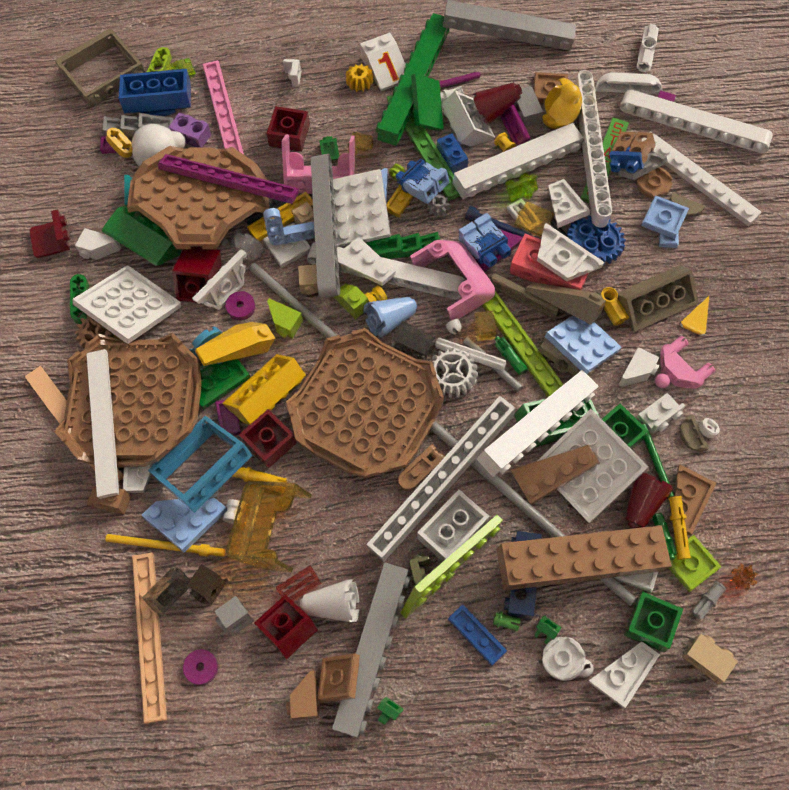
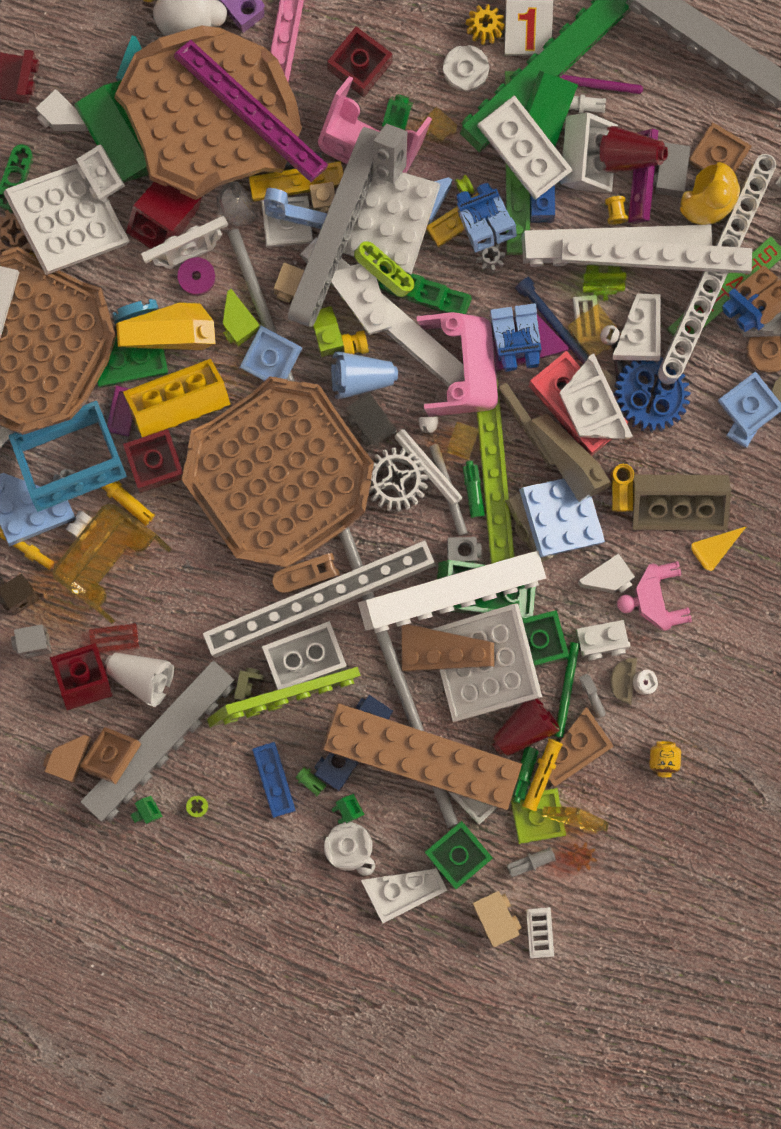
camera: 20 degrees right, 15 degrees up
(139, 263) = (100, 173): none -> white bracket
(316, 329) = (270, 355): none -> light blue tile
(337, 161) = (389, 153): none -> light grey brick
(360, 108) = (466, 68): none -> white tile
(371, 237) = (374, 268): none -> lime beam
(426, 124) = (524, 147): none -> white tile
(433, 684) = (189, 806): none -> lime bush
(528, 390) = (455, 542): none -> light grey brick
(542, 216) = (605, 331): none -> white hinge
(549, 150) = (656, 255): none -> white plate
(672, 448) = (590, 688): none -> light grey bar
(724, 547) = (576, 817): none -> clear yellow wing
(742, 657) = (548, 922): none -> white slope
(758, 474) = (665, 758): none -> yellow head

